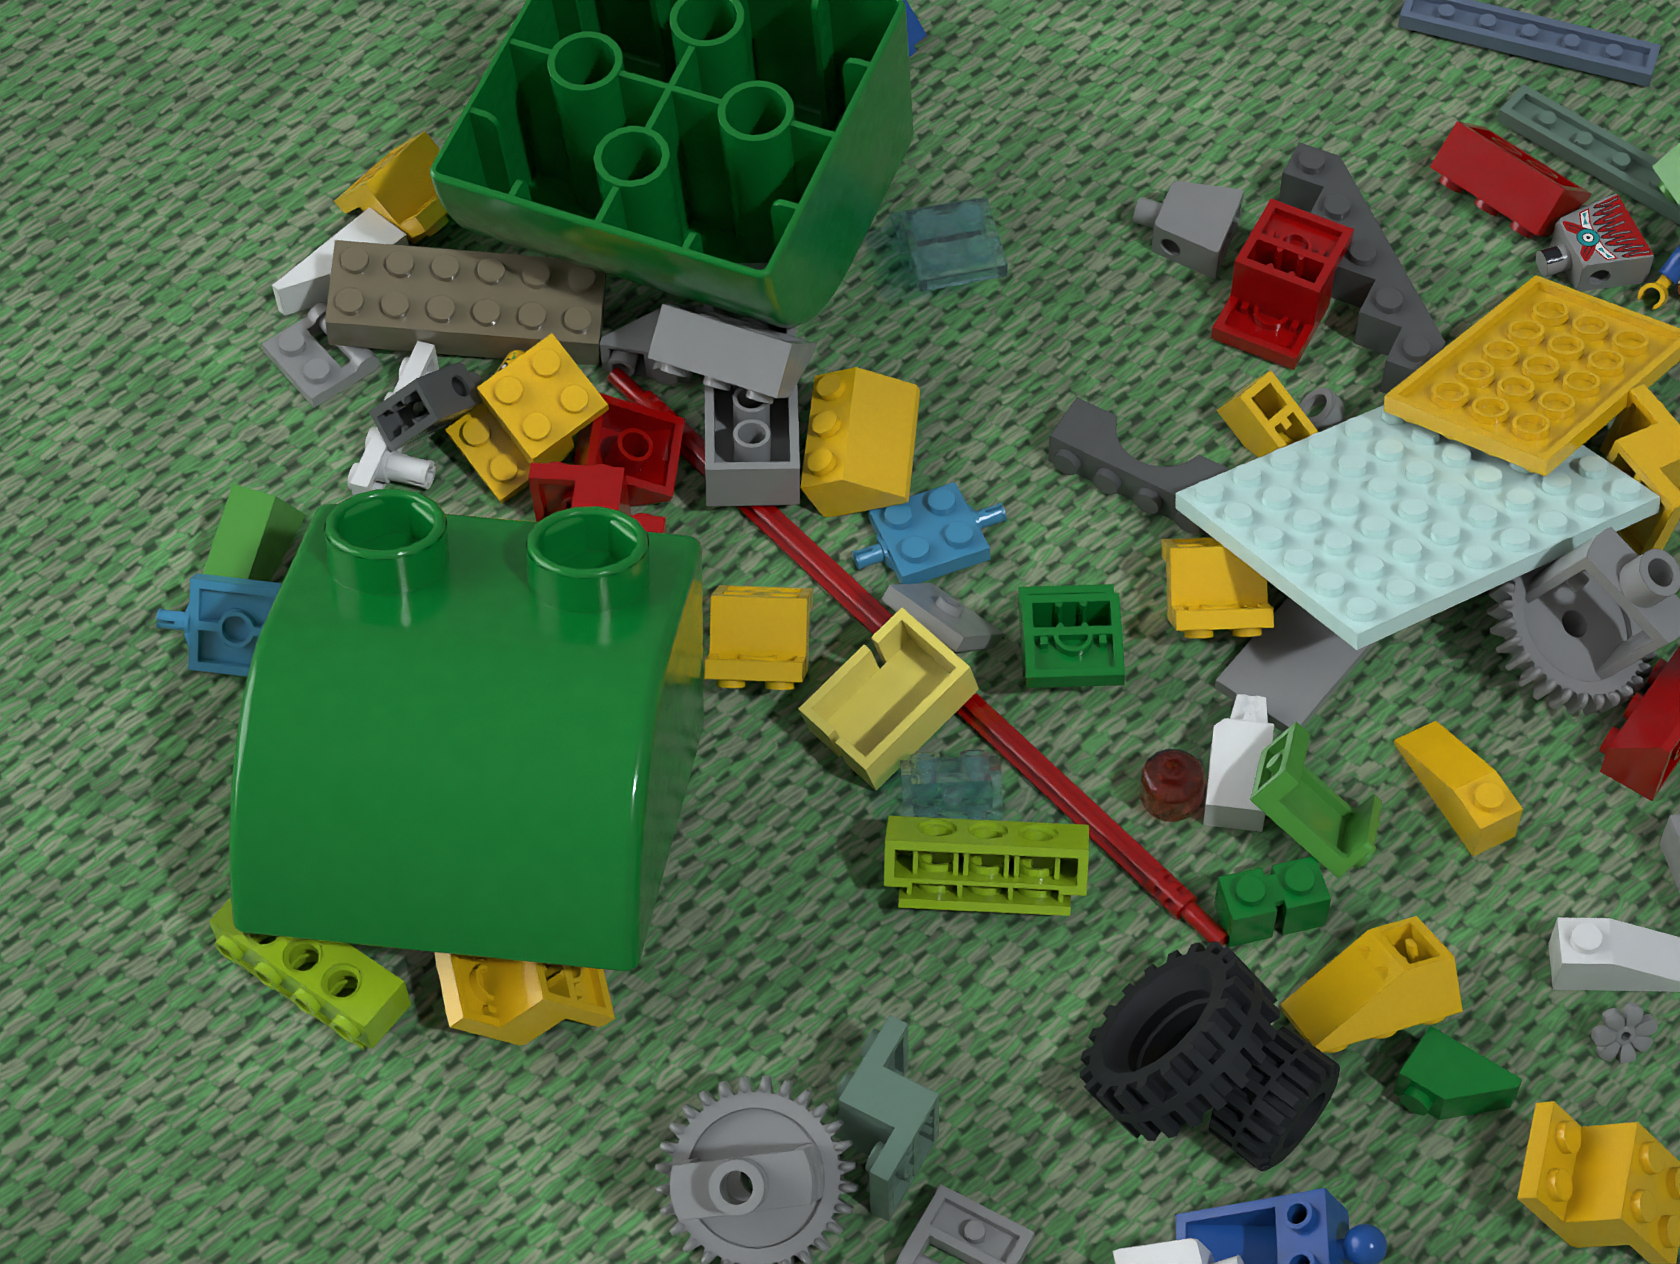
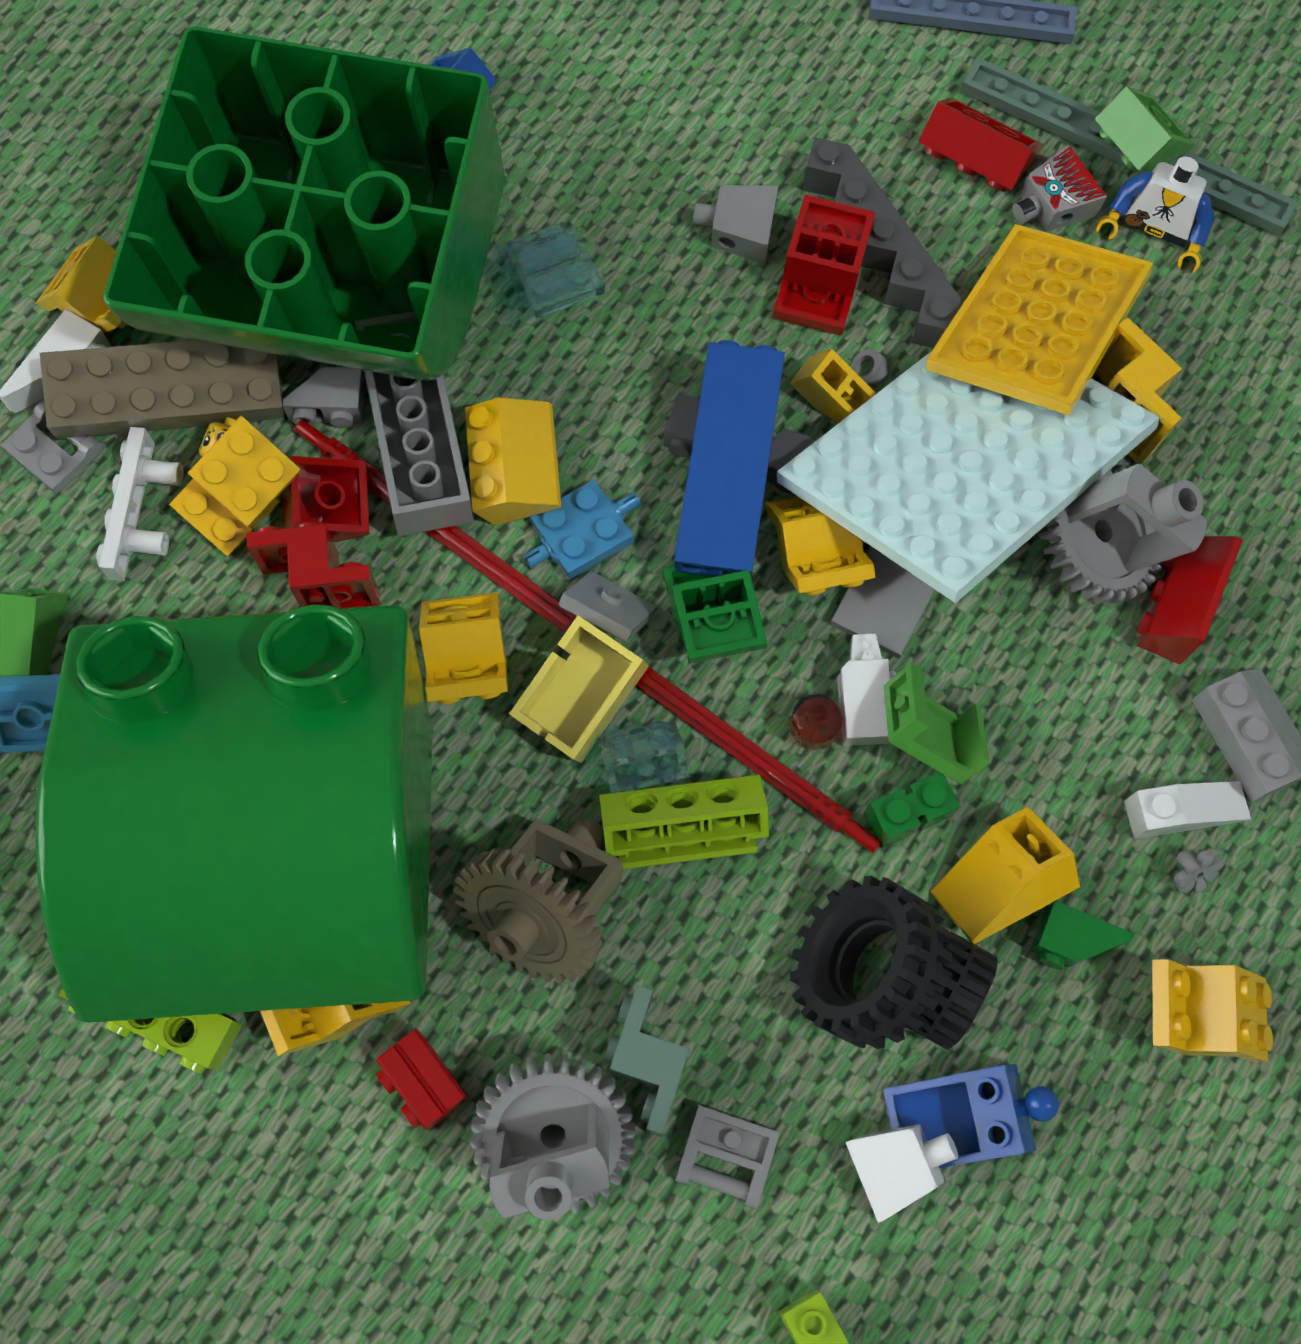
camera: 15 degrees left, 15 degrees up
(445, 394) = (157, 481): dark grey torso -> none
(611, 1100) = (421, 1081): none -> red brick
(729, 352) = (392, 405): light grey slope -> none
(792, 915) = (529, 914): none -> dark tan piece
(1121, 472) = (729, 459): none -> blue brick
(1462, 787) = (1036, 679): yellow slope -> none

